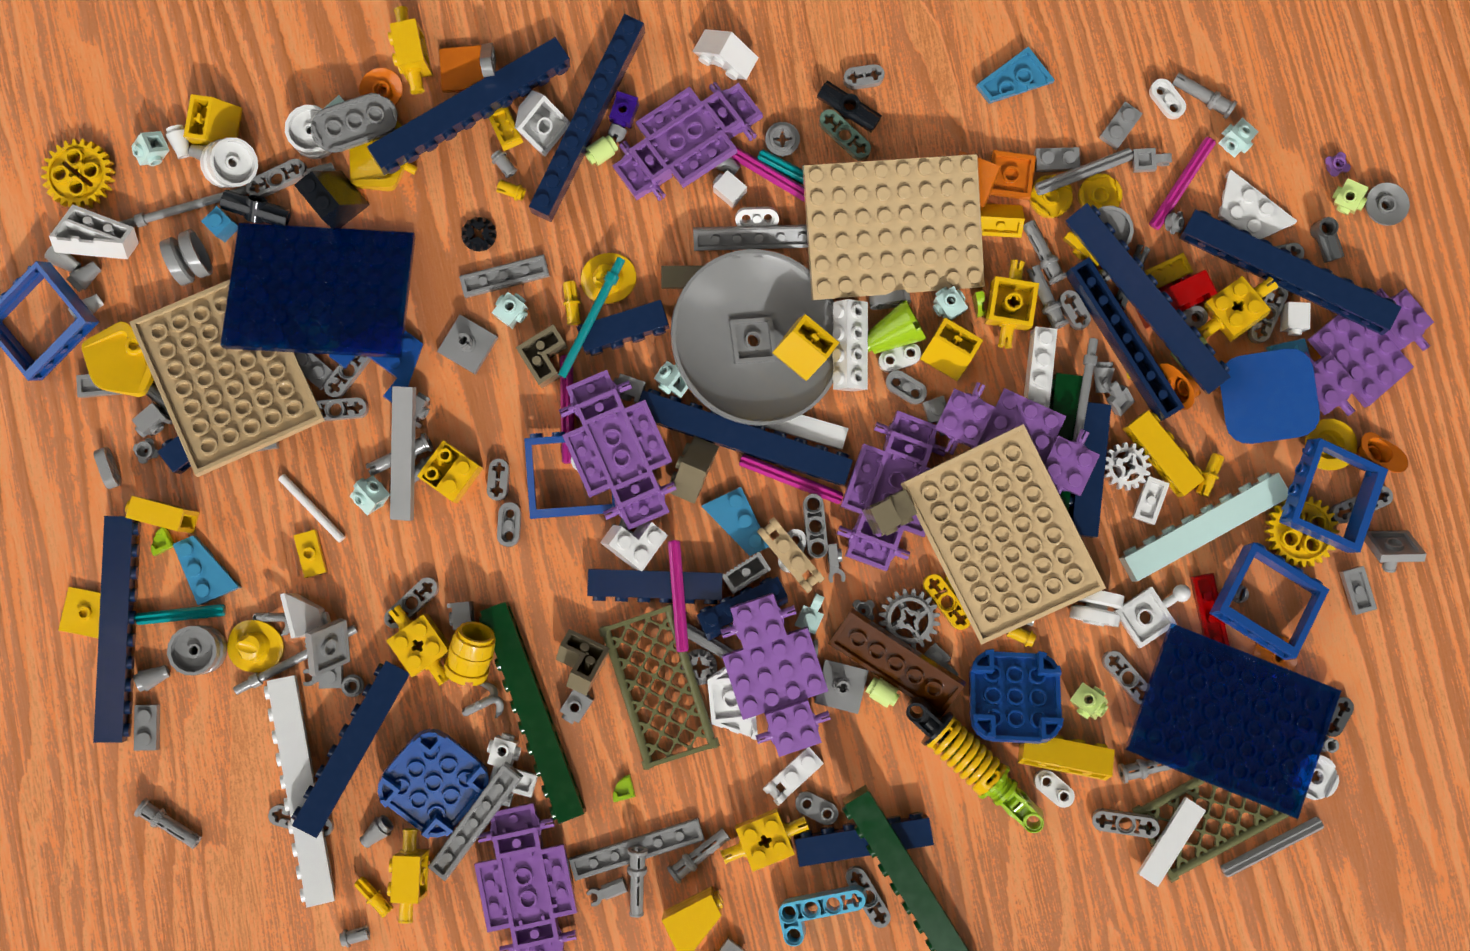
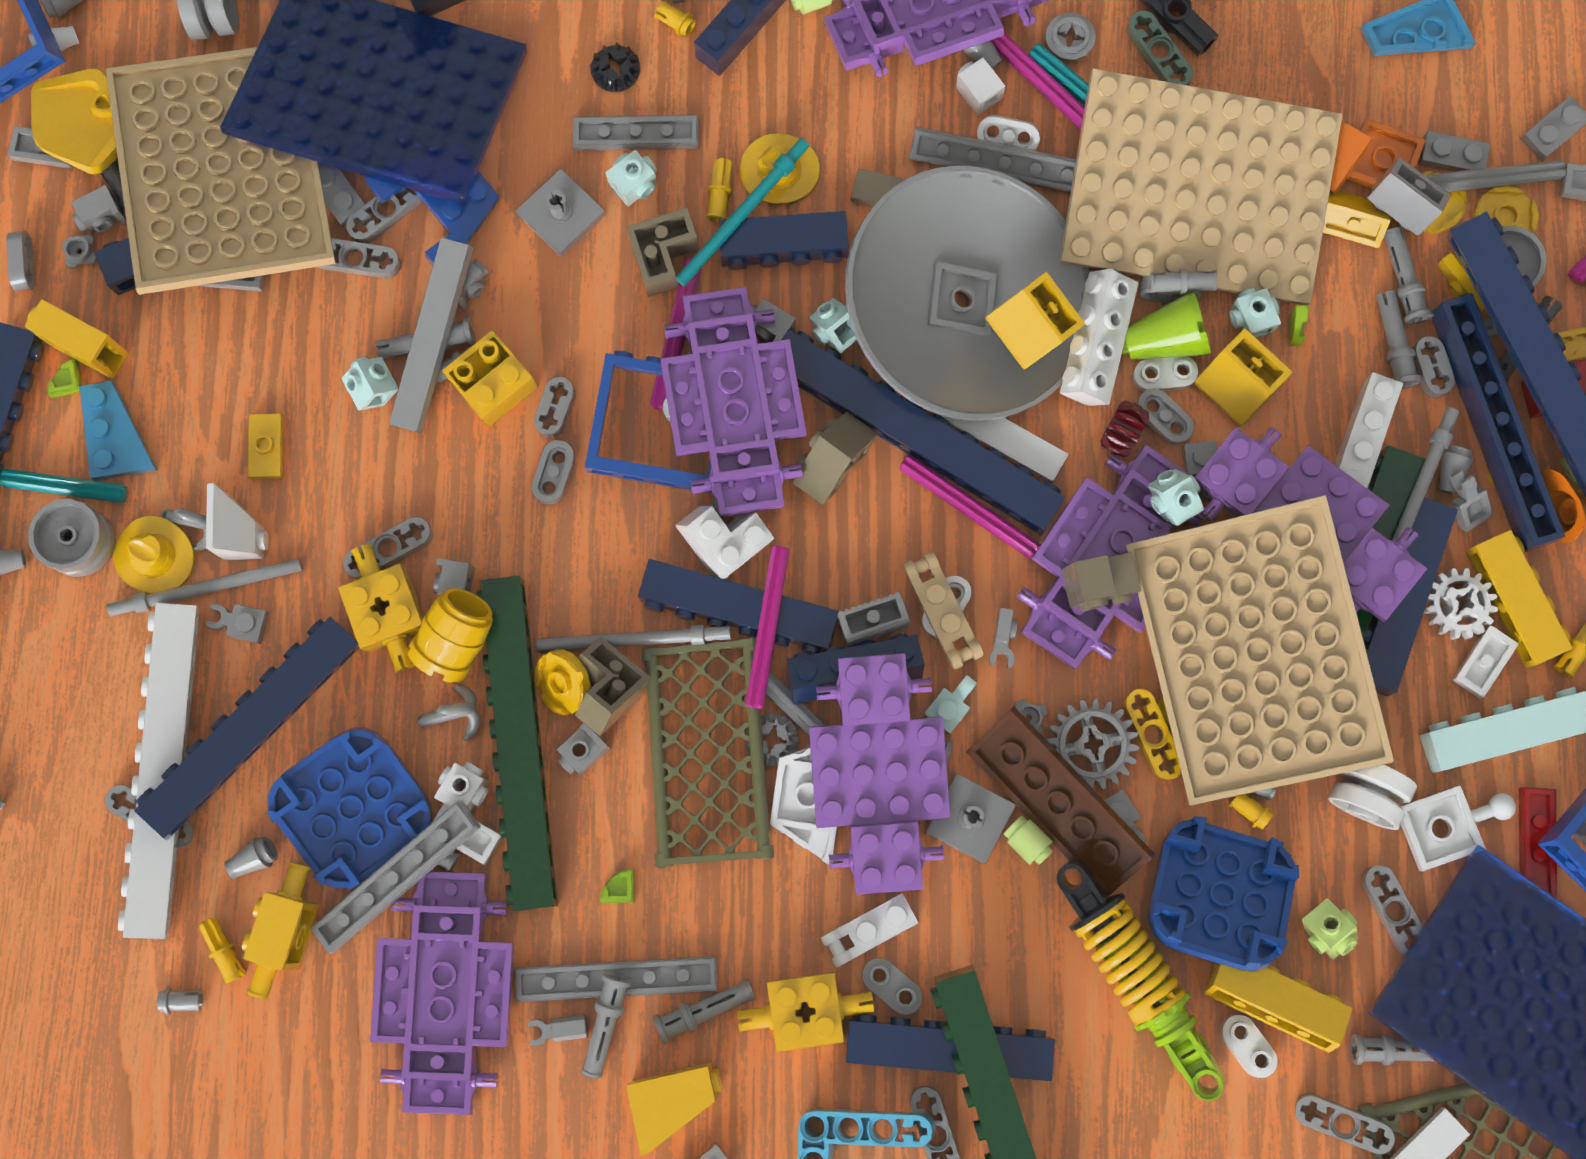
camera: 20 degrees right, 5 degrees down
(309, 505) = (284, 384): white bar -> none
(327, 647) = (253, 576): light grey tile -> none
(345, 685) = (265, 639): light grey plate -> none
(551, 664) = (561, 681): none -> yellow tile
(632, 611) = (696, 635): none -> light grey bar
(737, 519) = (879, 544): dark azure wing -> none
(818, 515) = (988, 564): light grey beam -> none
(881, 403) = (1125, 428): none -> dark red gear
(897, 295) = (1183, 281): none -> light grey pin
(925, 444) = (1175, 496): none -> light aqua brick
(1023, 297) = (1363, 329): yellow brick -> none
(1033, 200) = (1408, 197): none -> light grey brick

